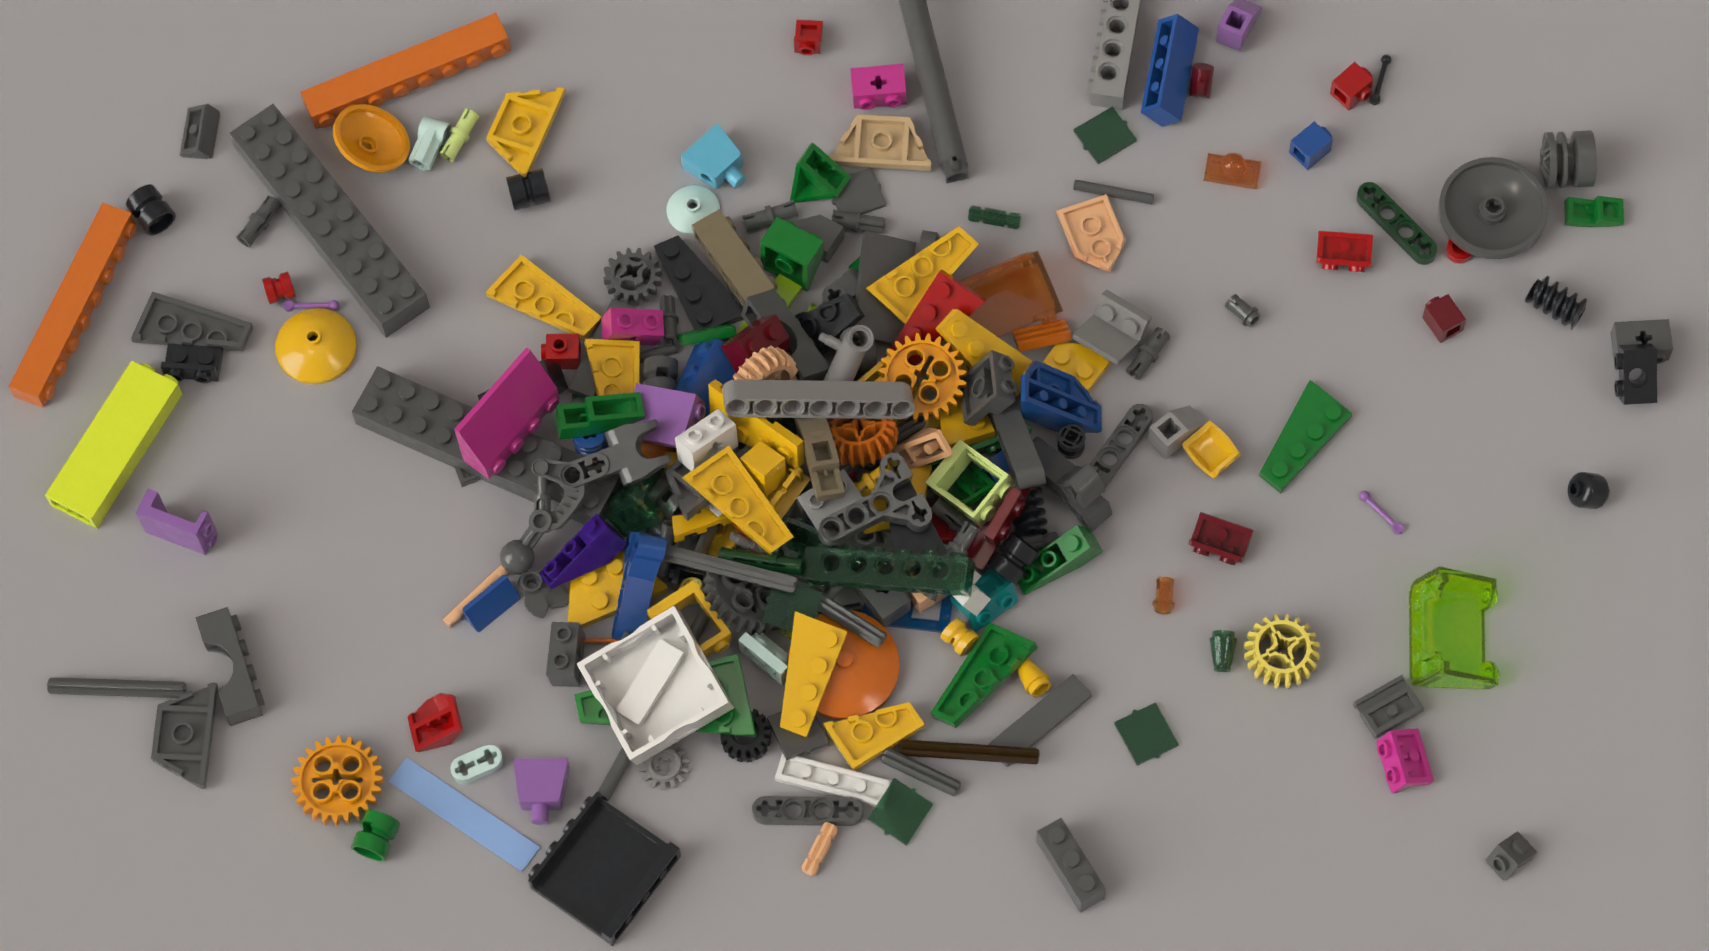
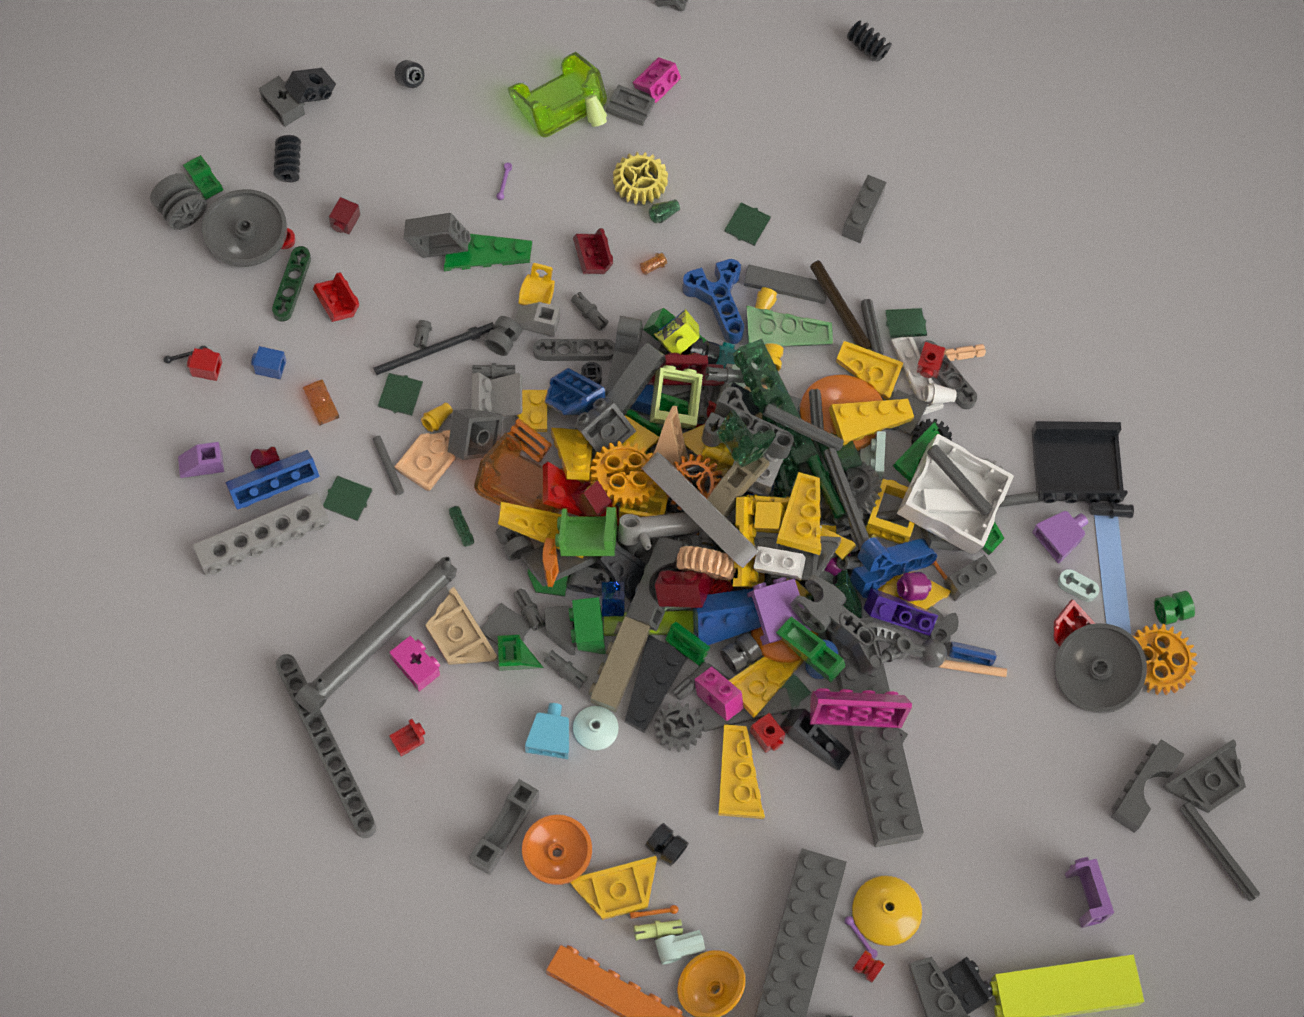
camera: 135 degrees left, 0 degrees up
(373, 707) = (1101, 668): none -> dark grey dish
(468, 162) = (673, 909): none -> orange hinge
(527, 860) = (1111, 509): none -> black axle
(595, 583) = (914, 586): none -> magenta head
(597, 77) = (553, 834): none -> orange dish
(652, 58) = (497, 839): none -> dark grey arch
(663, 690) = (959, 479): none -> dark grey axle
(786, 773) = (938, 394): none -> white cone
(803, 291) = (612, 598): none -> clear blue brick
(830, 790) = (930, 360): none -> red brick
(832, 465) = (741, 443): none -> clear green bracket
(837, 574) = (803, 427): none -> dark grey axle
(872, 238) = (550, 561): none -> orange slope
(881, 293) = (587, 534): none -> bright green panel
(914, 319) = (591, 498): none -> dark red brick
(1042, 534) = (678, 333): none -> neon yellow torso
(1081, 277) = (473, 433): none -> dark grey slope
(1081, 648) = (727, 274): none -> blue beam
(1133, 264) = (436, 417): none -> yellow cone
(1152, 493) = (589, 311): none -> dark grey pin
(1182, 385) = (502, 337): none -> dark grey wheel
(1188, 252) = (400, 394): none -> clear green piece
(1208, 359) = (472, 333): none -> black bar
(1344, 378) = (419, 234): none -> dark grey window
(1400, 656) = (595, 112): none -> yellowish green cone

